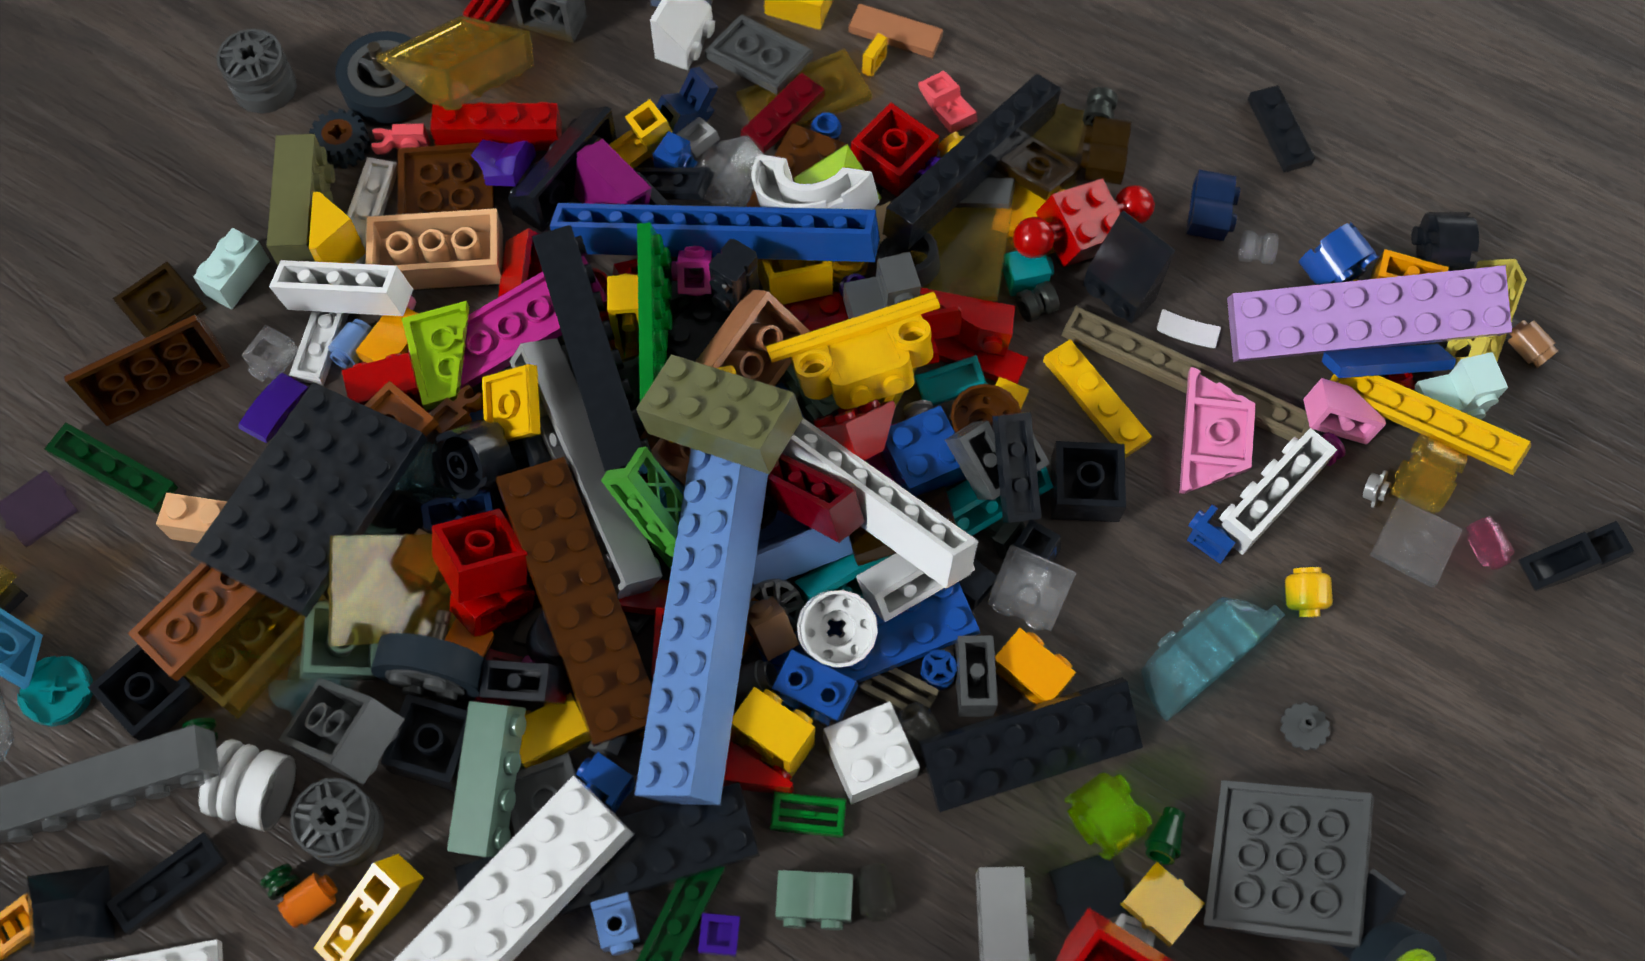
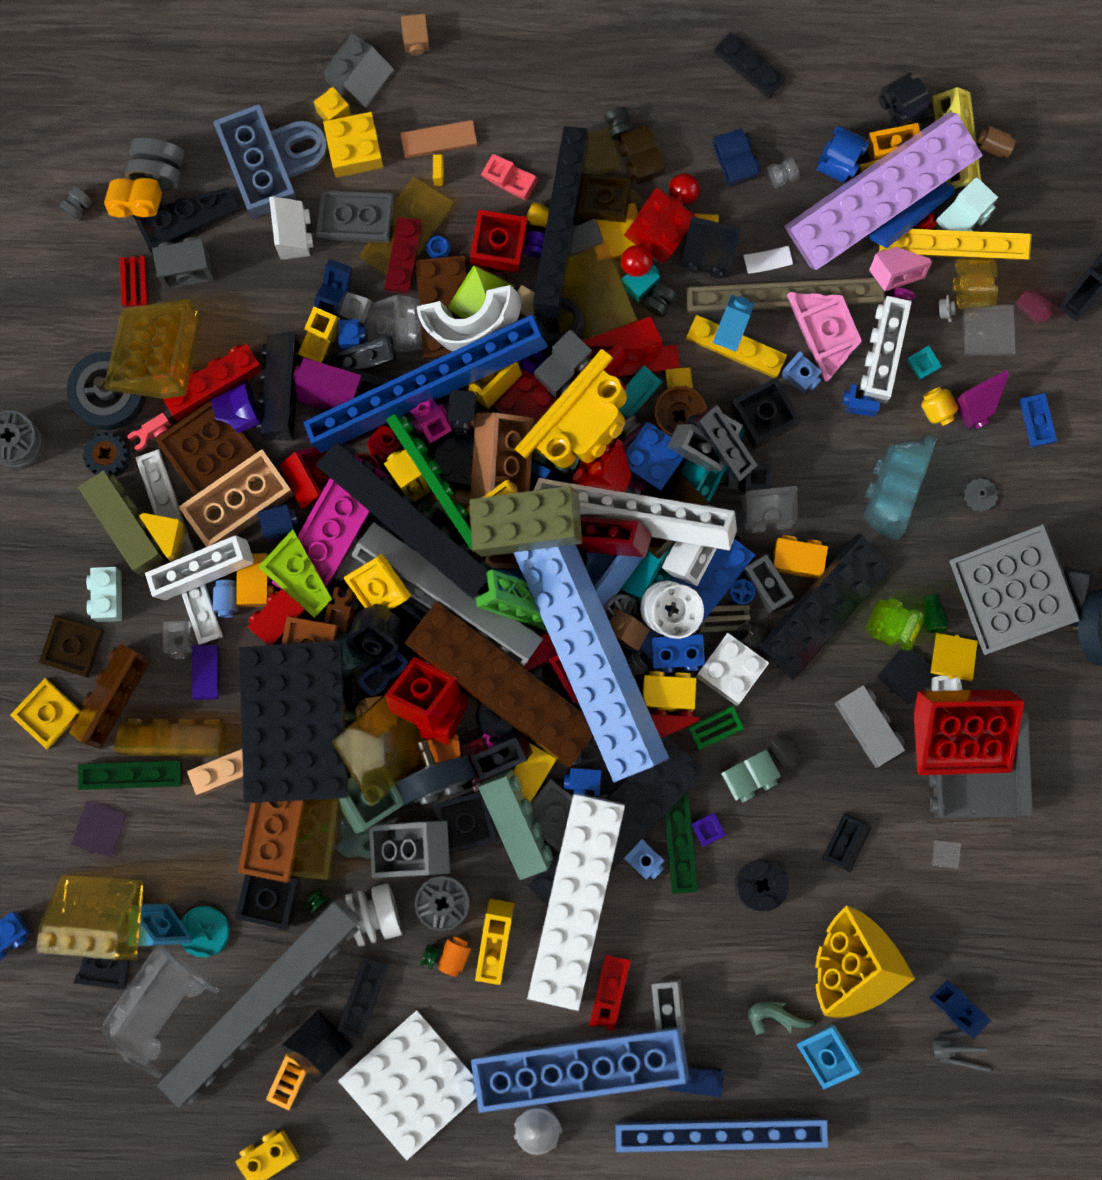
camera: 30 degrees left, 15 degrees up
(75, 348) = (46, 713): none -> yellow tile
(177, 450) = (171, 739): none -> clear yellow slope
(457, 284) = (278, 523): none -> dark blue brick
(1108, 363) = (733, 322): none -> dark azure slope
(1152, 474) = (793, 375): none -> medium blue brick
(1314, 533) = (923, 363): none -> teal plate
(1363, 608) = (981, 401): none -> magenta slope
(1426, 677) = (1038, 420): none -> blue plate

